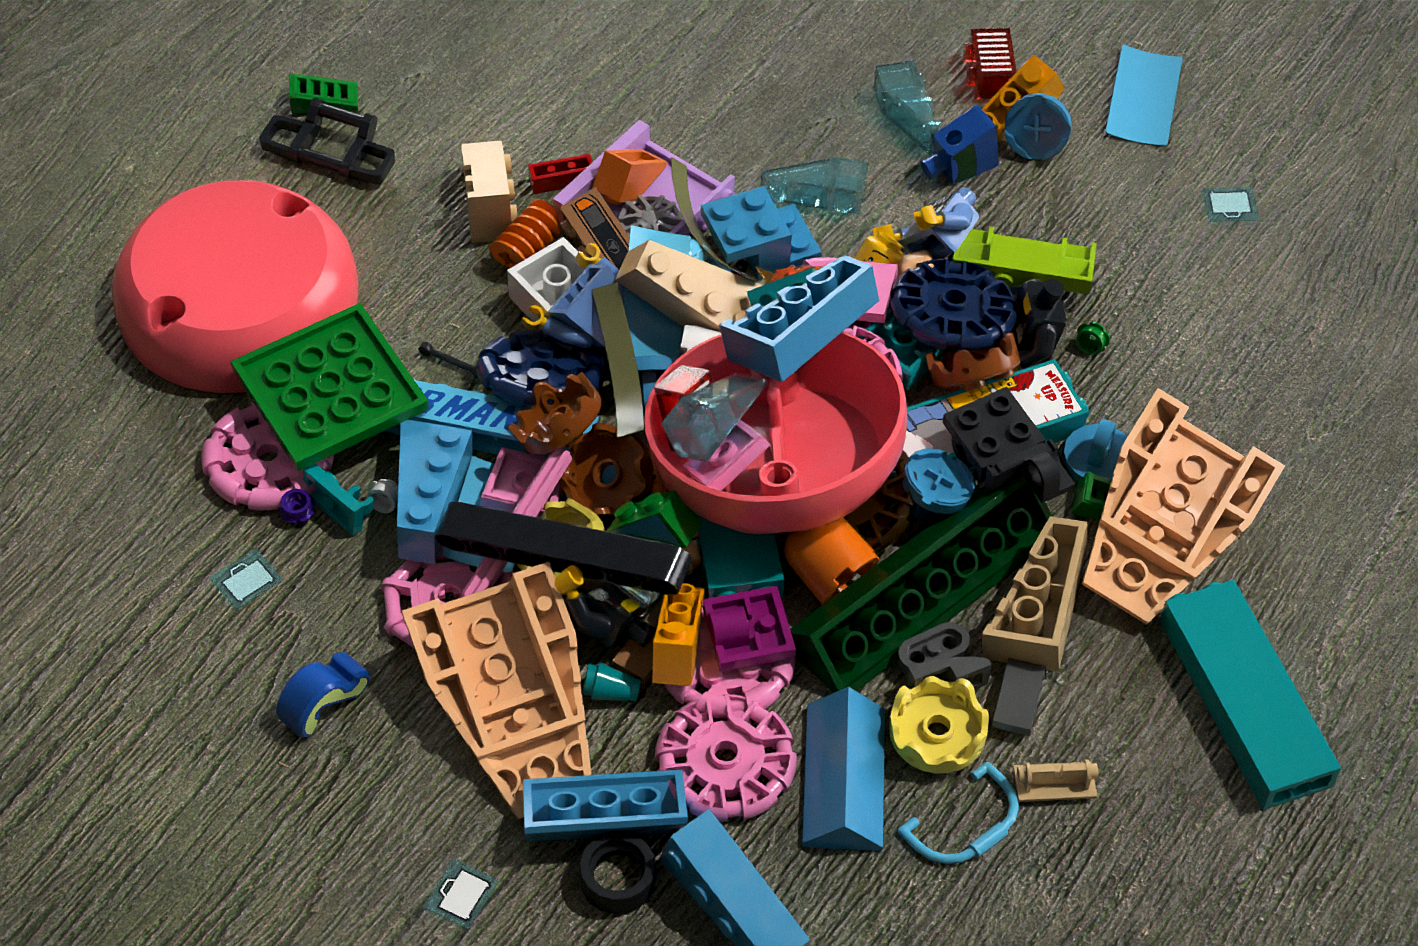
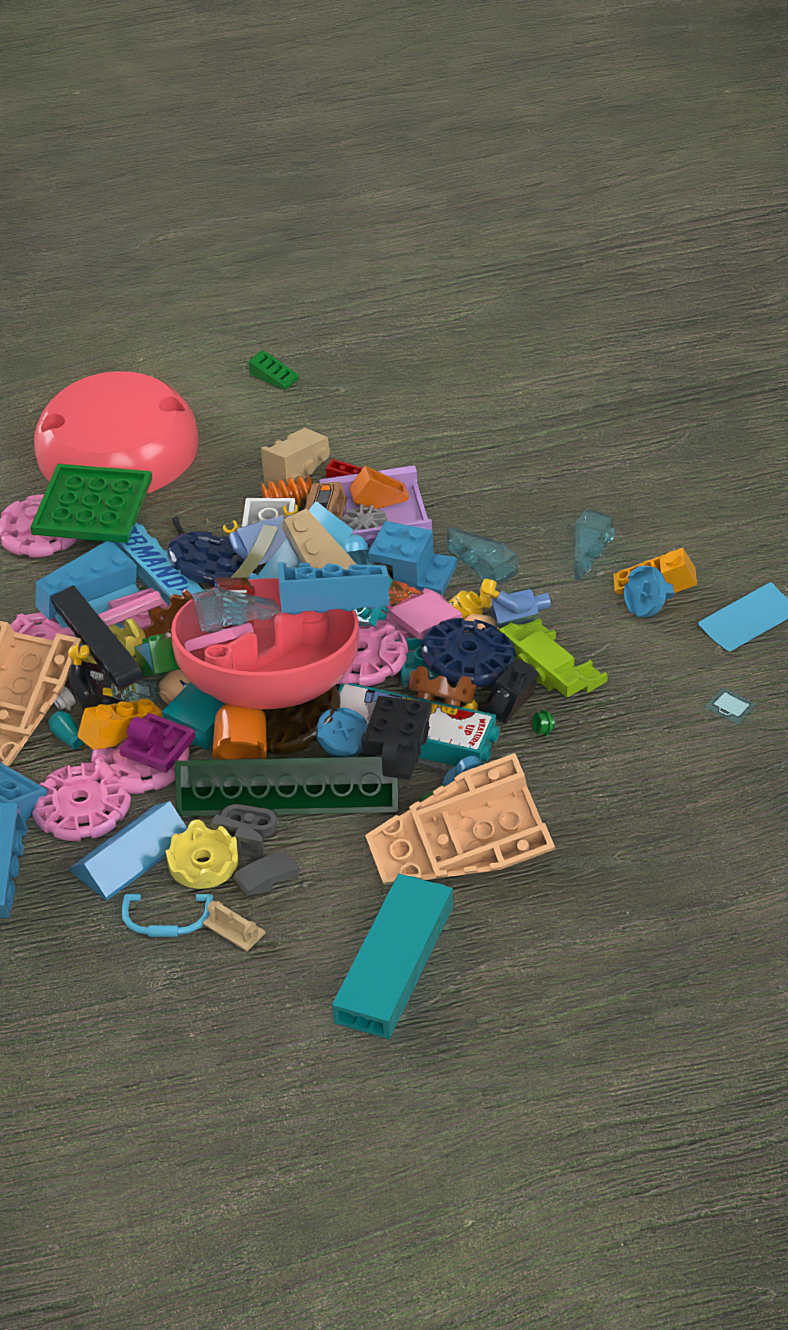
camera: 45 degrees right, 10 degrees down
(287, 507) = (23, 559): dark purple plate -> none
(308, 132) = (245, 385): black bar -> none
(337, 502) = (44, 555): teal plate -> none
(557, 425) = (166, 580): dark orange plate -> none
(680, 184) = (383, 513): olive sticker -> none
(963, 148) = (586, 580): blue torso -> none
(990, 60) = (667, 539): clear red brick -> none
(1040, 604) = (335, 831): tan wedge -> none

